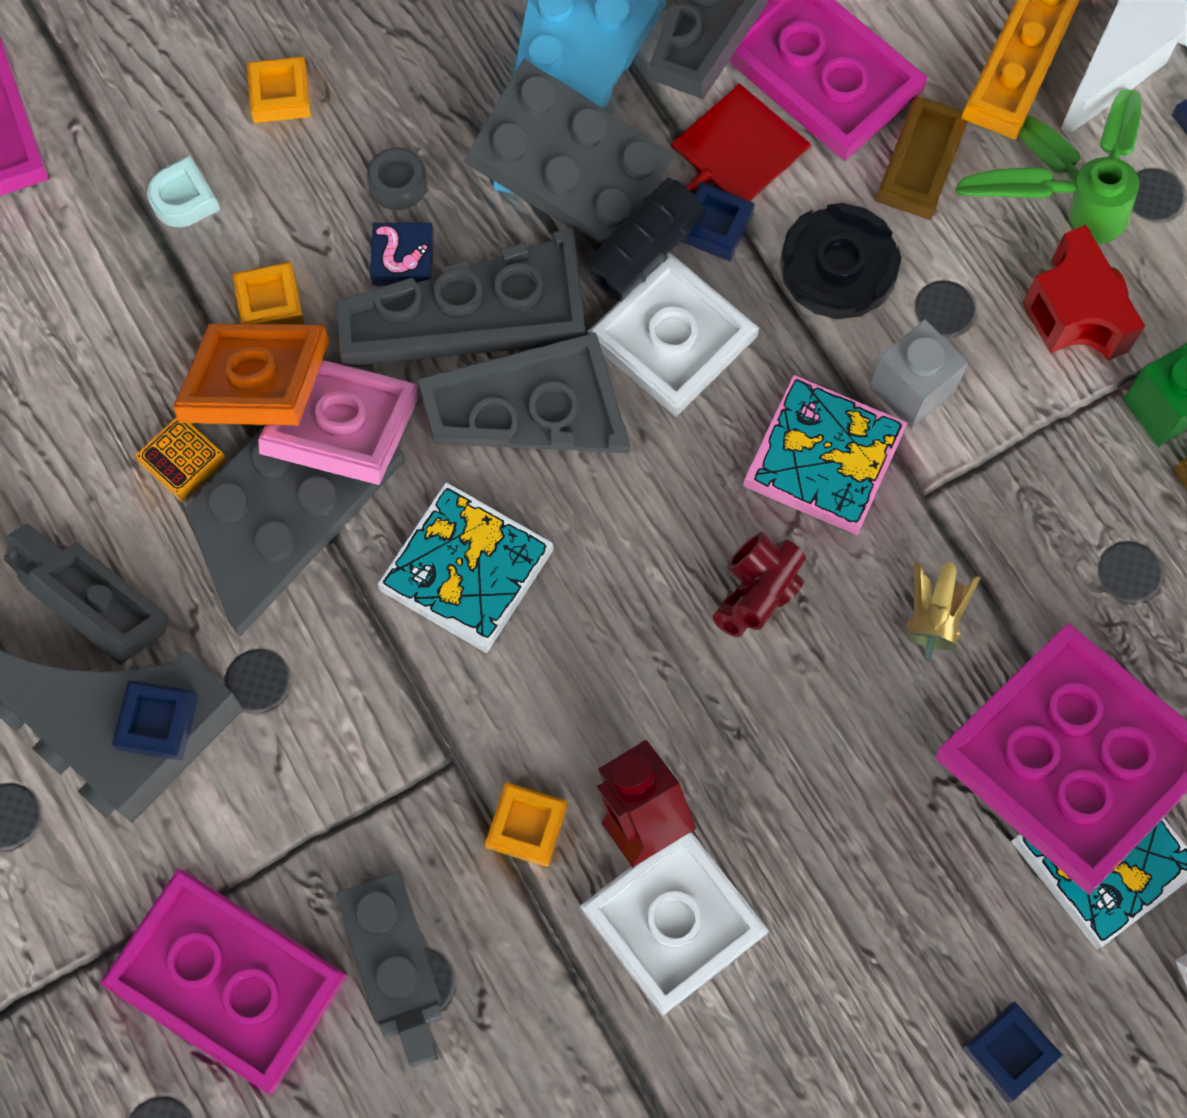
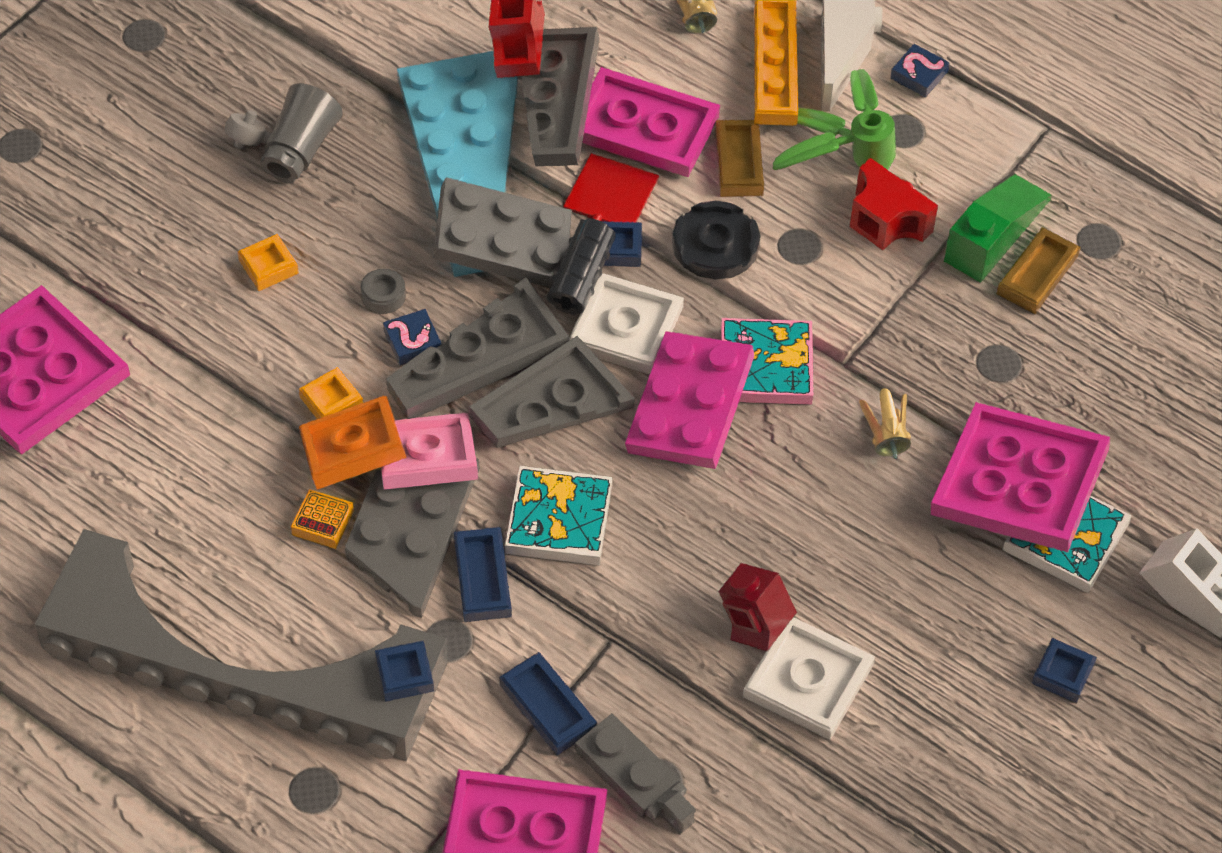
camera: 25 degrees left, 15 degrees down
(85, 593) = (300, 622): dark grey hinge -> none
(181, 194) = (233, 353): light aqua tile -> none
(332, 820) = (547, 703): none -> dark blue tile
(336, 610) = (482, 574): none -> dark blue tile
(526, 824) = (681, 656): light orange tile -> none
(700, 474) = (690, 399): none -> dark pink plate
(767, 583) = (768, 450): dark red plate -> none
(918, 373) = (805, 287): light grey brick -> none

